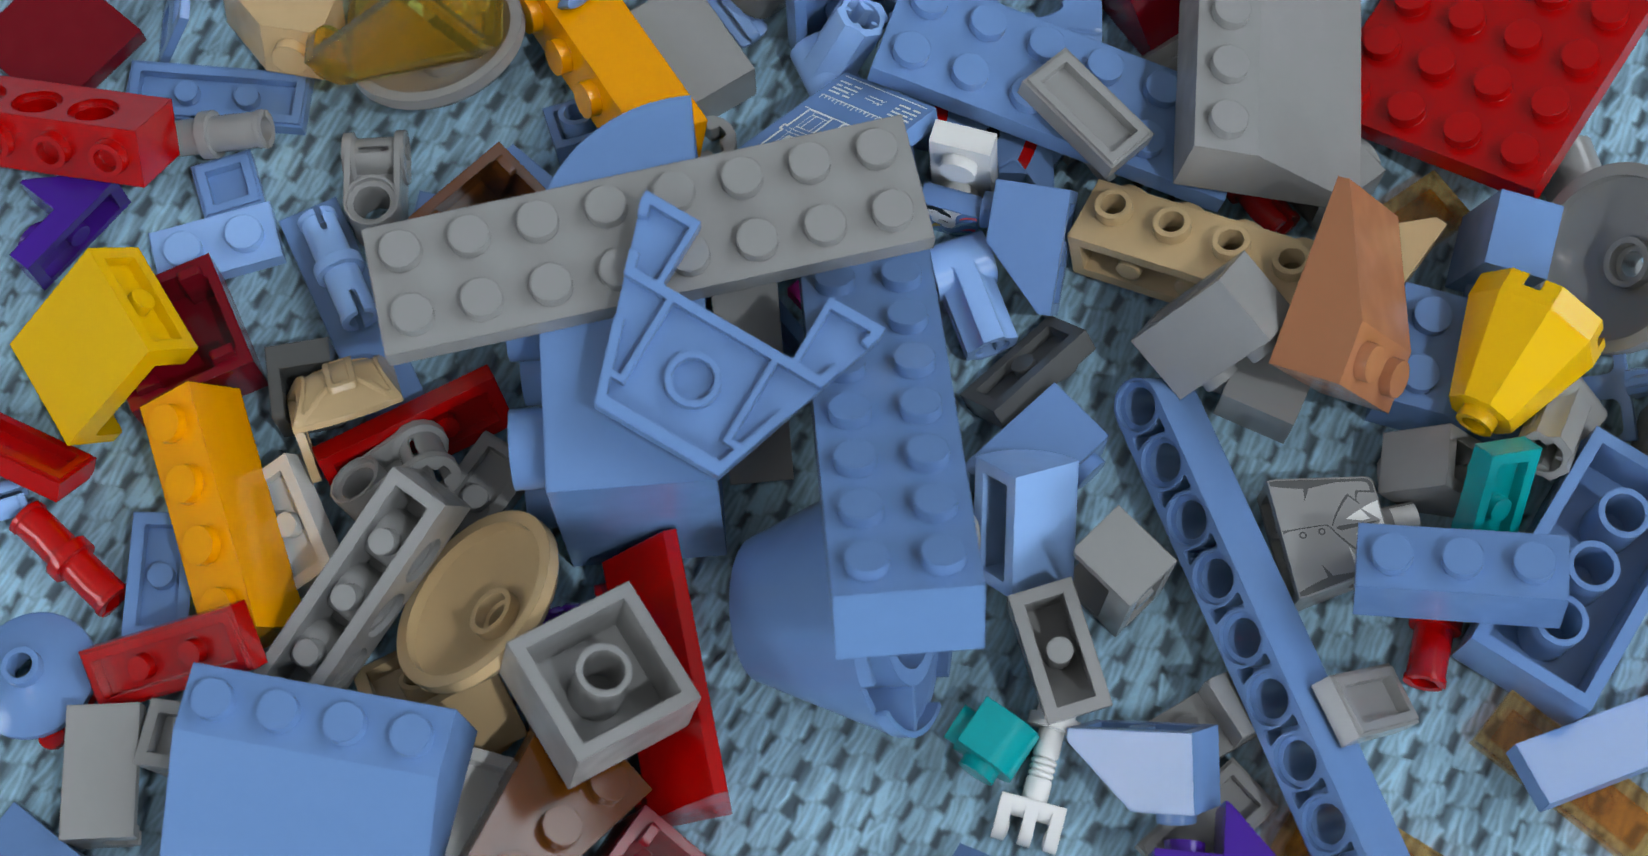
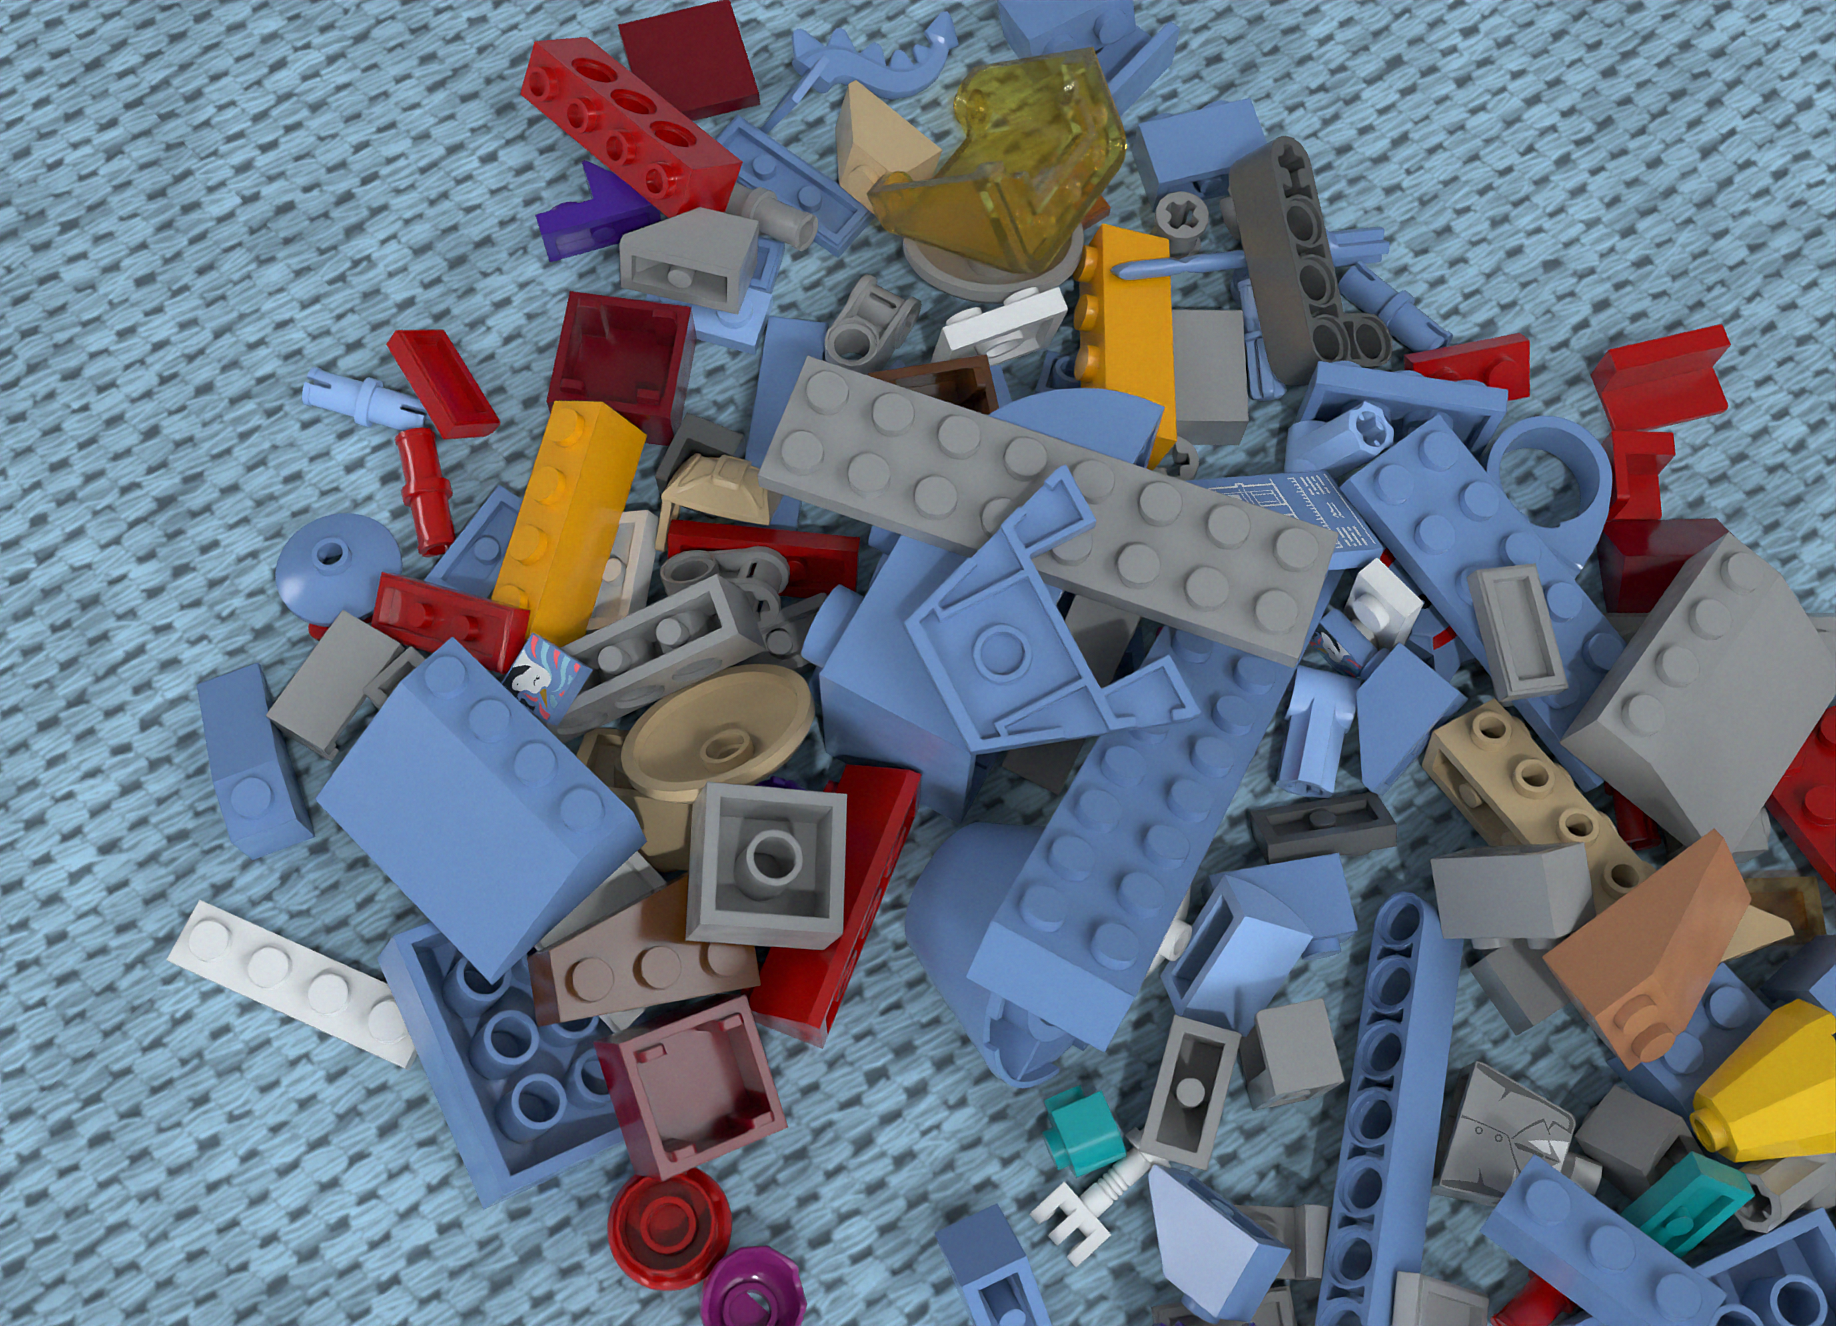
camera: 30 degrees right, 0 degrees up
(100, 341) = (557, 326): yellow panel -> none
(183, 208) = (693, 259): none -> light grey slope
(297, 648) = (546, 679): none -> tile
(338, 268) = (784, 375): light blue pin -> none
(510, 101) = (1016, 329): none -> white plate

